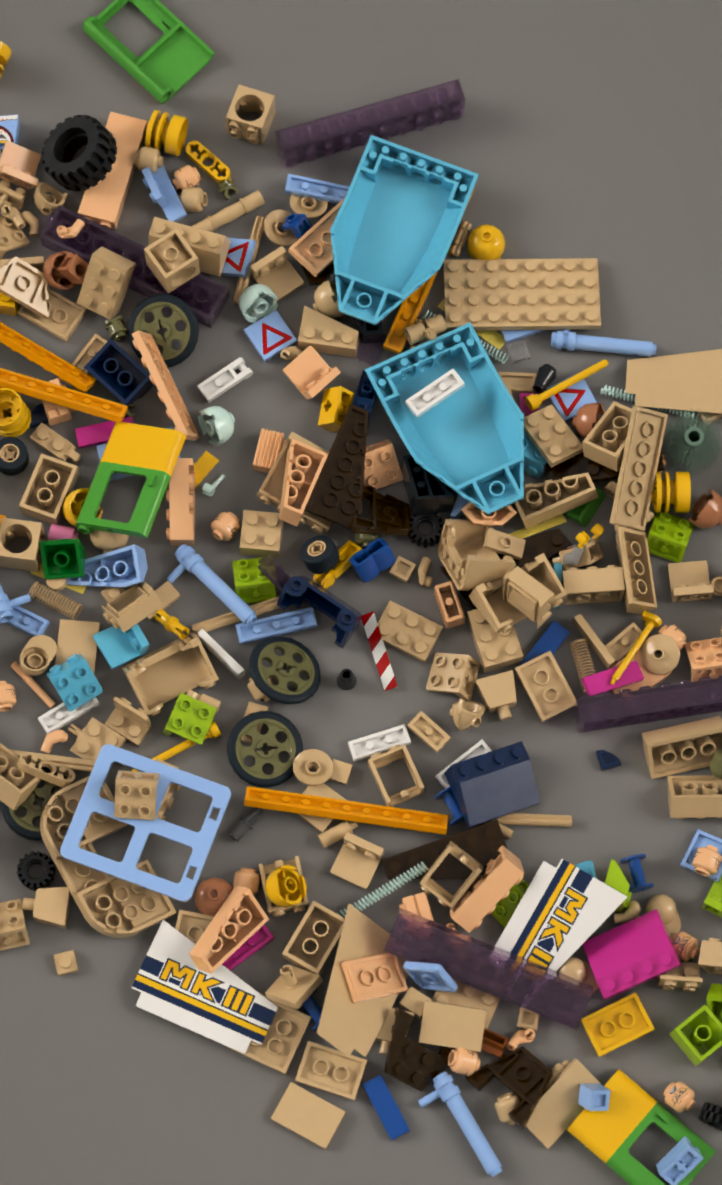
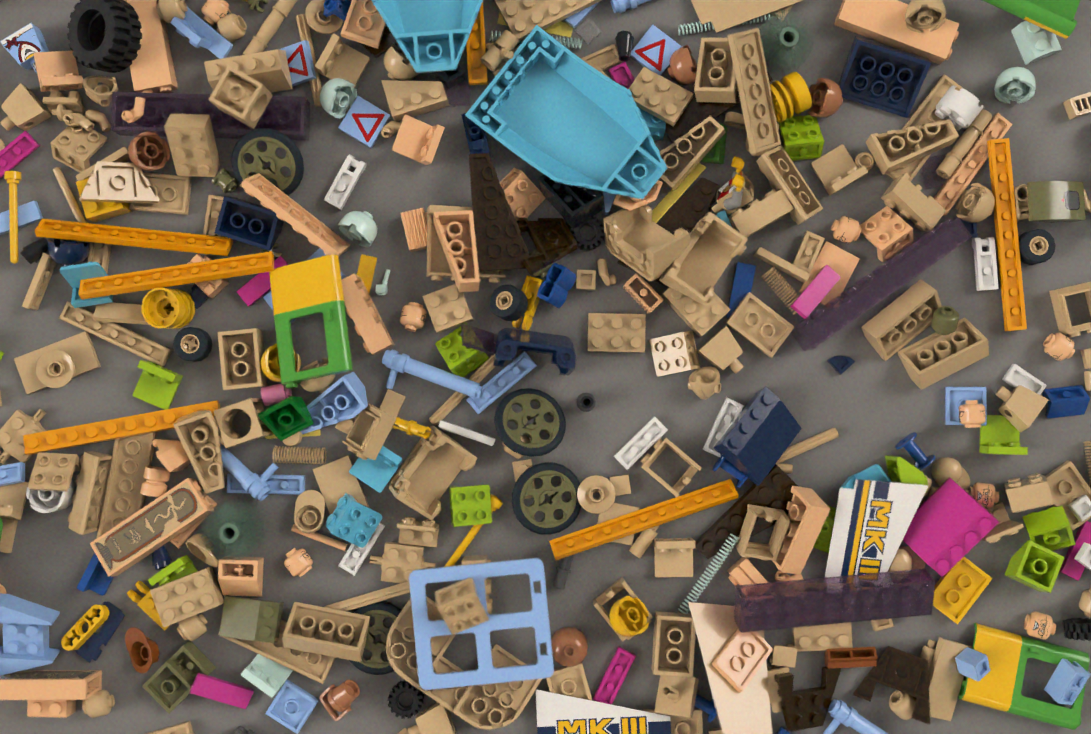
camera: 25 degrees left, 15 degrees up
(42, 762) = (363, 606): tan beam -> none
(53, 738) = (360, 577): light nougat arm -> none
(55, 444) = (226, 313): tan hinge -> none
(68, 266) = (151, 148): nougat brick -> none
(206, 699) = (473, 480): tan bar -> none
(229, 929) = (597, 677): light nougat wedge -> none
(247, 878) = (589, 621): light nougat head -> none
(334, 407) = (455, 162): yellow brick -> none
(379, 651) = (601, 363): sticker -> none
(429, 732) = (679, 413): tan plate -> none
(430, 976) = (788, 632): light blue tile -> none
(434, 393) = (539, 107): white plate -> none
(452, 1026) = (827, 663): tan tile -> none
(463, 1061) = (847, 684): light nougat head -> none
(504, 543) = (664, 215): tan plate -> none
(520, 1037) = (883, 638): light nougat arm -> none
(527, 595) = (715, 258): tan window -> none
(534, 401) = (626, 70): yellow piece -> none
(652, 621) = (823, 222): yellow piece -> none
(669, 658) = (840, 240): tan dish -> none

